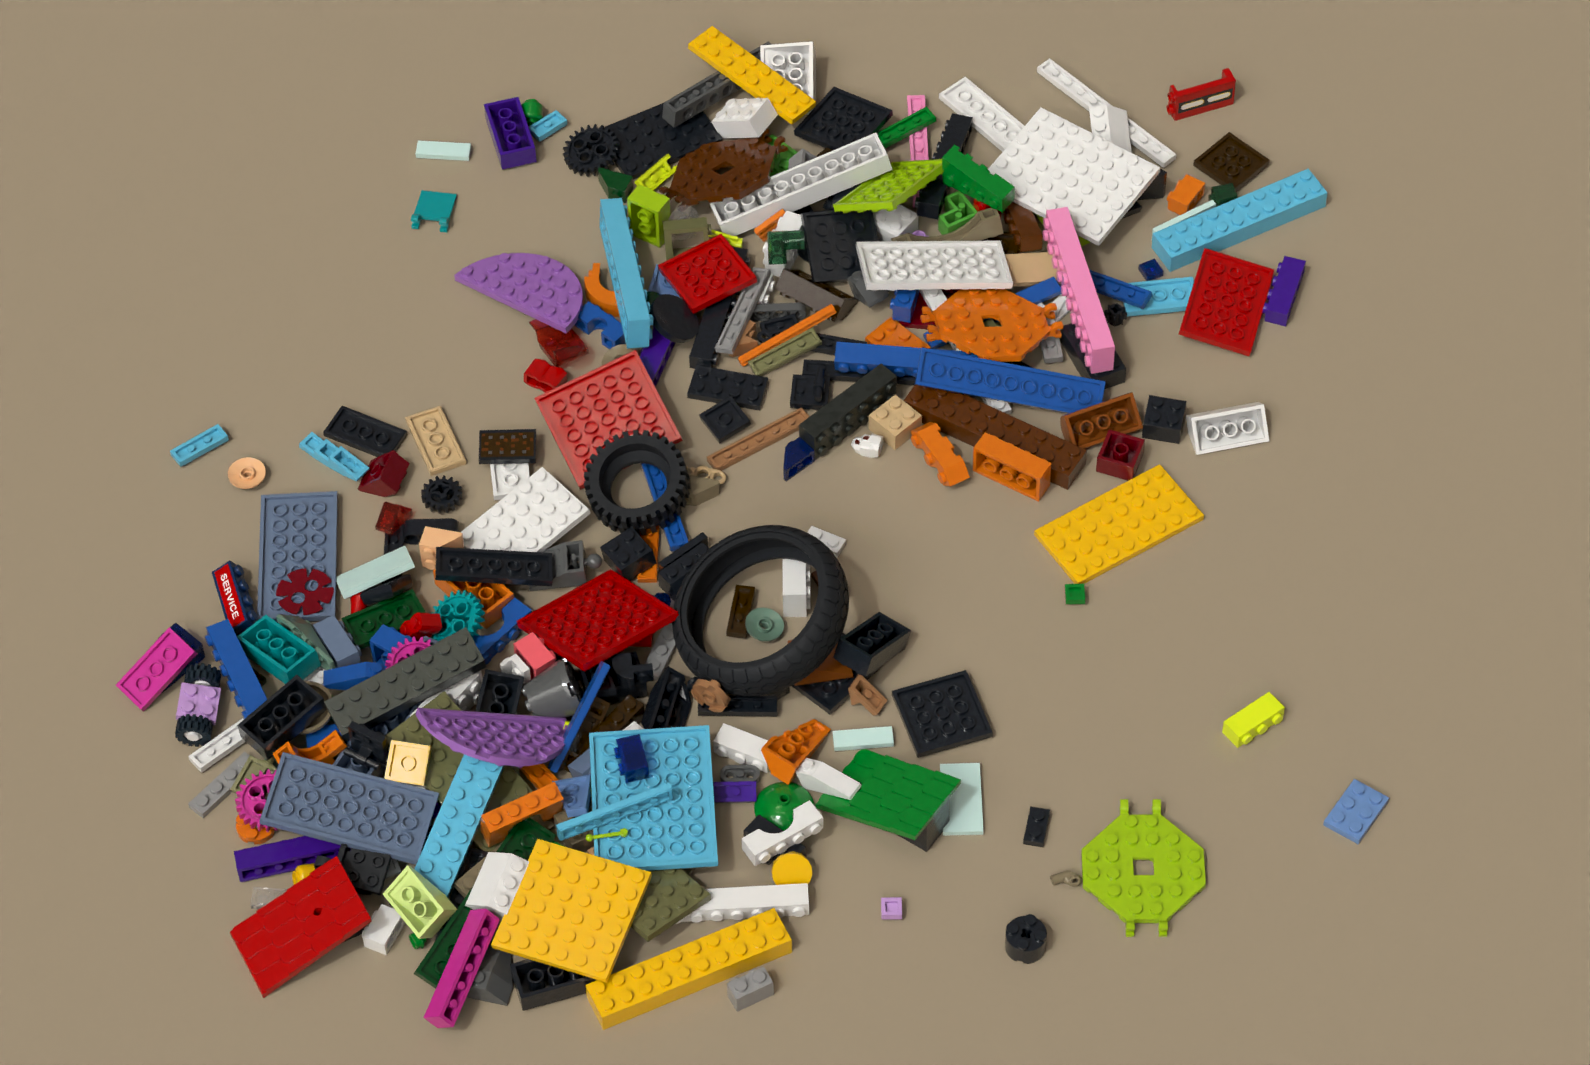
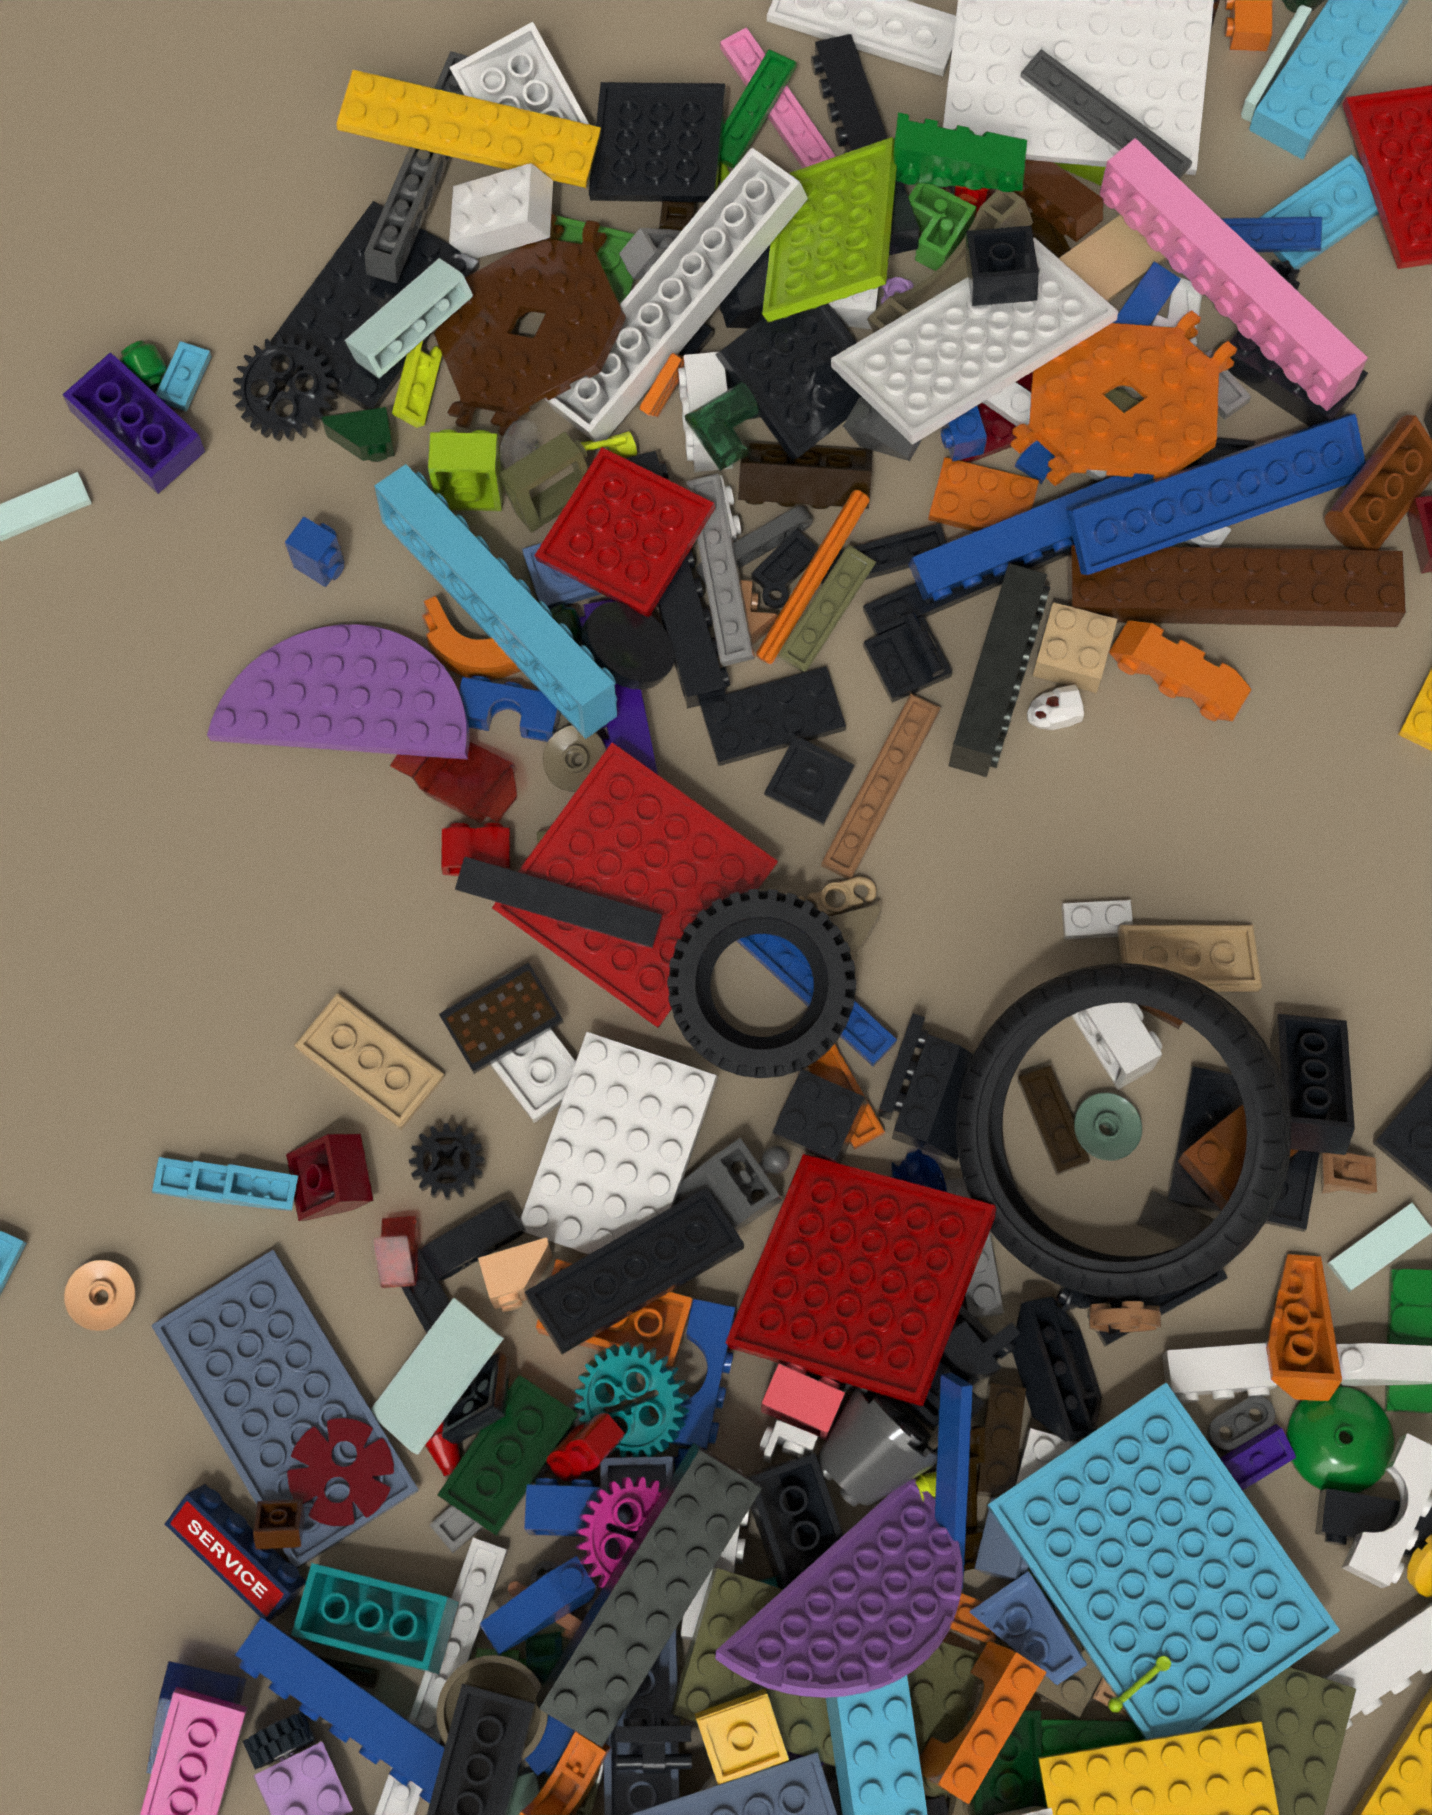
camera: 30 degrees left, 20 degrees up
(262, 593) = (279, 1524): none -> reddish brown piece
(305, 631) = (394, 1561): sand green wedge -> none
(337, 642) = (464, 1548): sand blue brick -> none
(364, 432) = (245, 1109): black tile -> none
(435, 207) = (92, 621): teal flag -> none
(556, 220) = (315, 551): none -> blue brick
(566, 407) = (558, 902): none -> black tile
(614, 811) = (1132, 1640): medium azure tile -> none
(632, 758) = (1095, 1523): clear blue brick -> none
(668, 143) = (409, 318): none -> light aqua brick
(797, 457) = (961, 791): clear blue slope -> none
(865, 577) = (1211, 954): none -> tan tile
(967, 237) = (1001, 265): none -> black brick
(1011, 466) = (1307, 638): orange brick -> none
(1065, 196) = (1098, 111): none -> dark grey tile
(1150, 270) = (1280, 172): clear blue plate -> none

